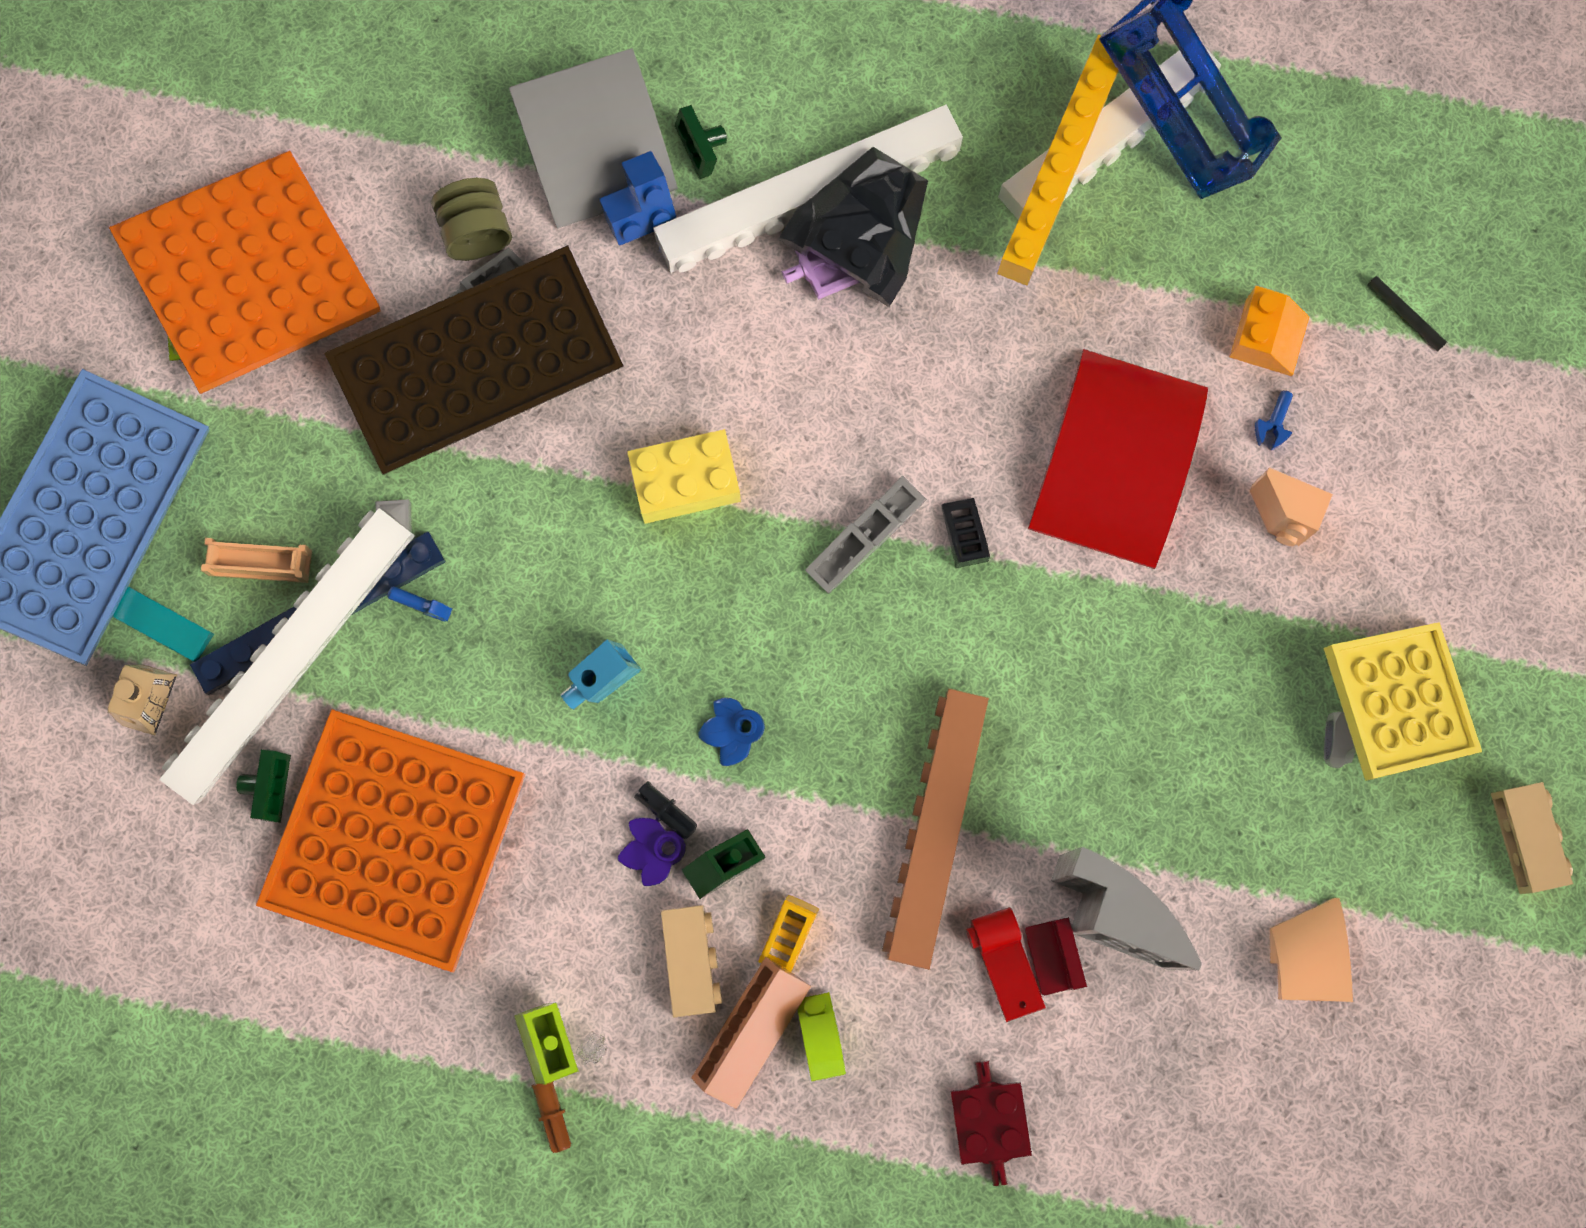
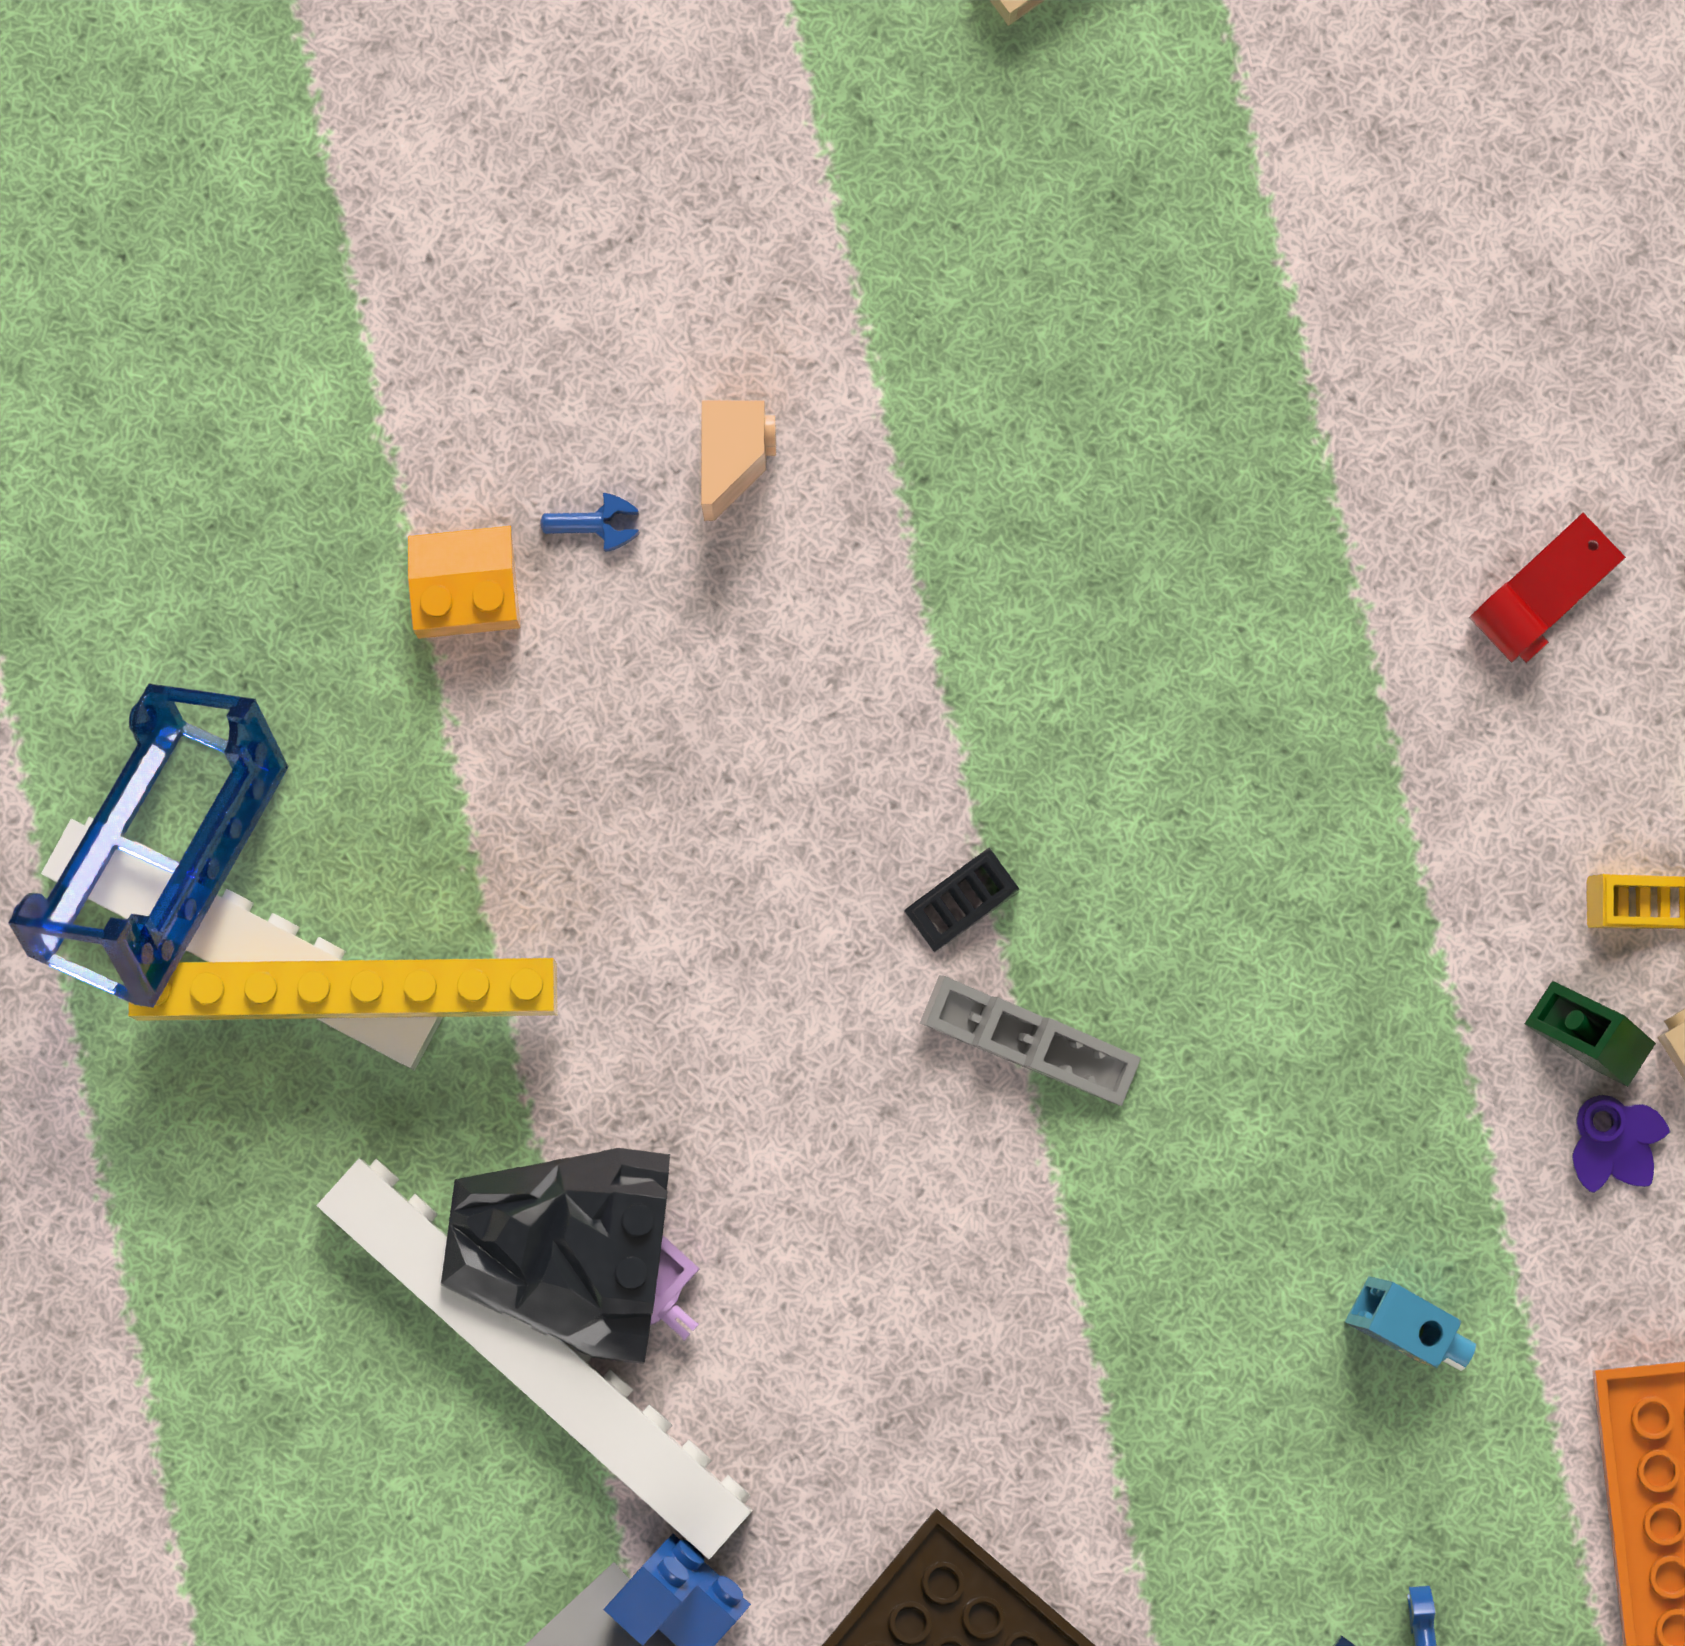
camera: 110 degrees left, 5 degrees up
(666, 810) = (1553, 1147): black axle -> none
(684, 476) = (1066, 1340): light yellow brick -> none
(699, 141) = (529, 1559): dark green tile -> none
(727, 732) = (1404, 1112): blue plate -> none
(937, 829) = (1408, 760): nougat brick -> none
(1055, 956) = (1506, 528): dark red panel -> none
(1120, 459) = (748, 724): red slope -> none
(1123, 912) = (1430, 466): light grey slope -> none
(1313, 955) = (1349, 184): light nougat slope -> none
(1338, 741) = (1026, 253): light grey rock -> none
(1402, 700) = (942, 194): light yellow plate -> none
(1407, 313) = (340, 396): pearl dark grey bar -> none

